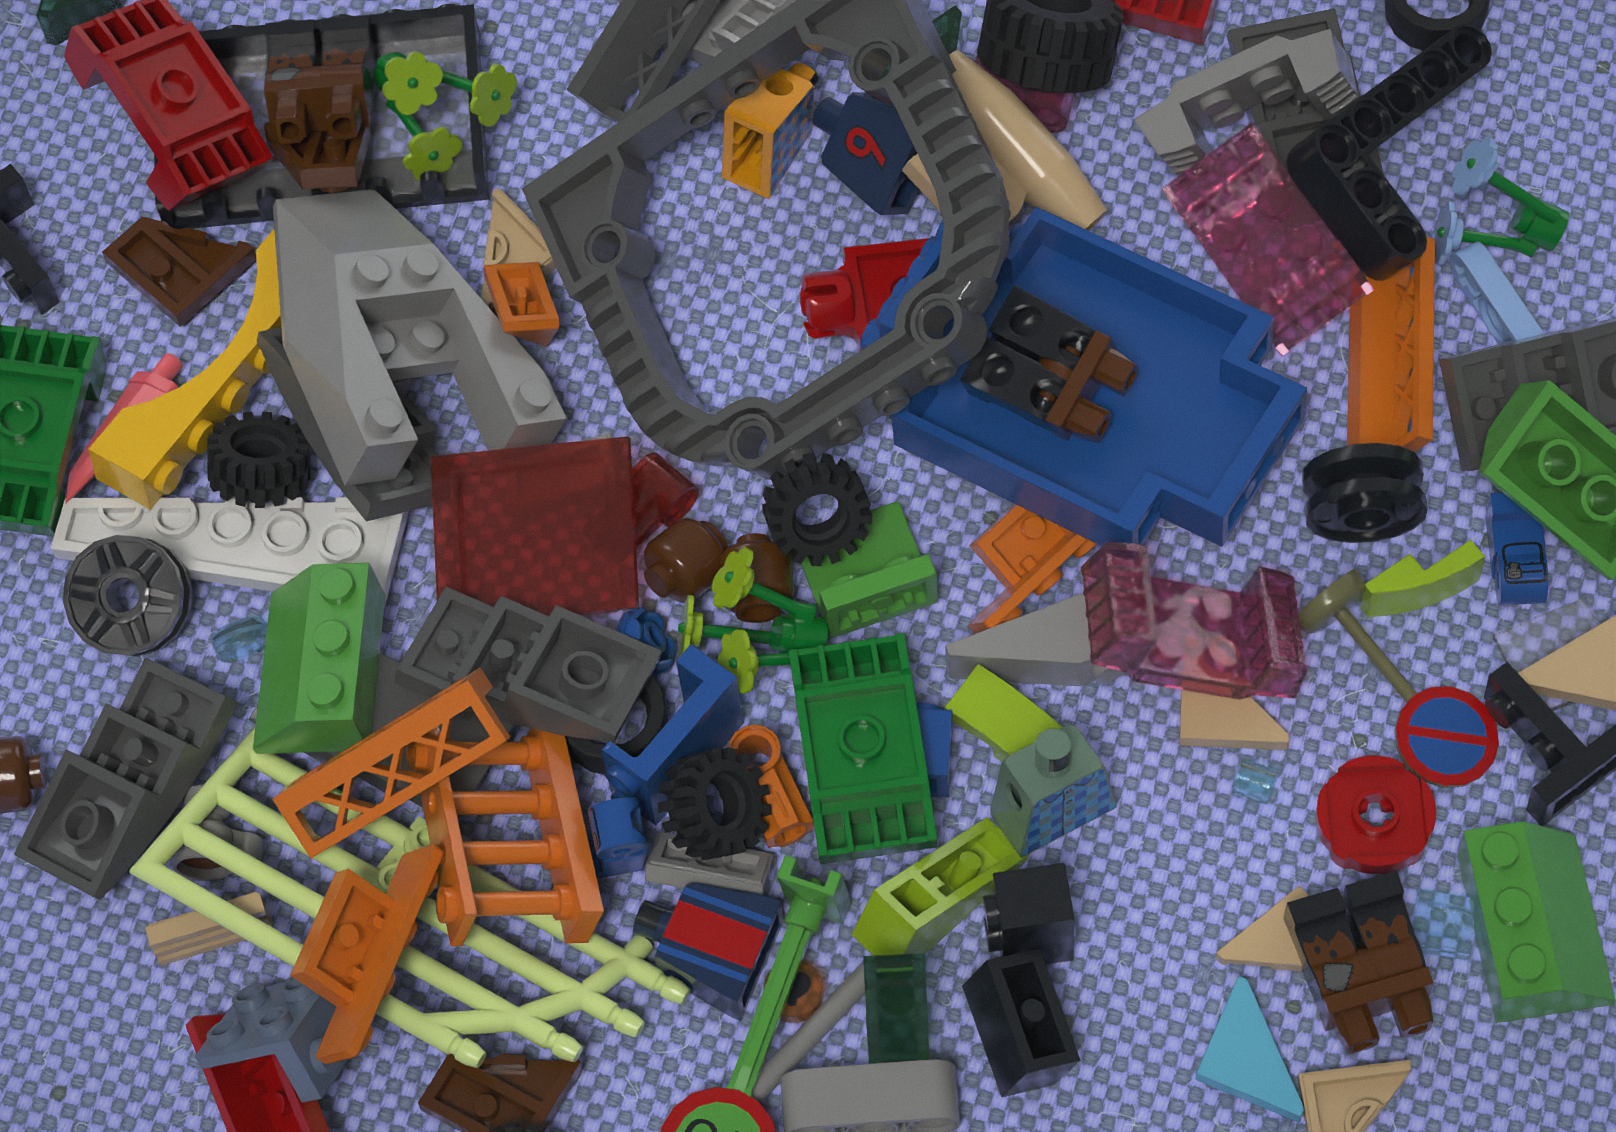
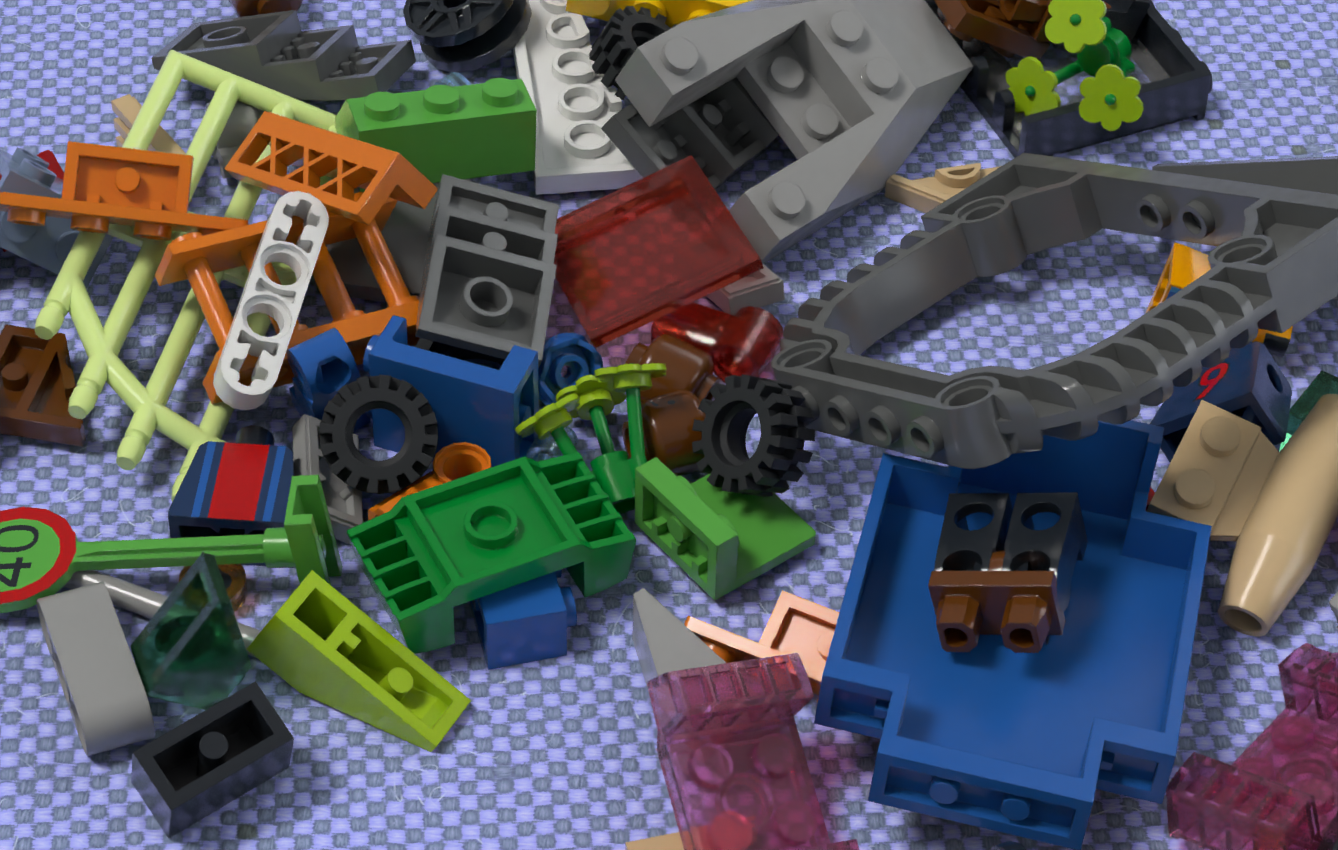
camera: 65 degrees right, 20 degrees down
(522, 301) = (896, 188): orange slope -> none
(536, 854) = (270, 298): none -> white beam
(998, 713) = (583, 687): lime slope -> none
(1031, 912) = (338, 734): black brick -> none
(1050, 790) = (509, 723): sand green torso -> none

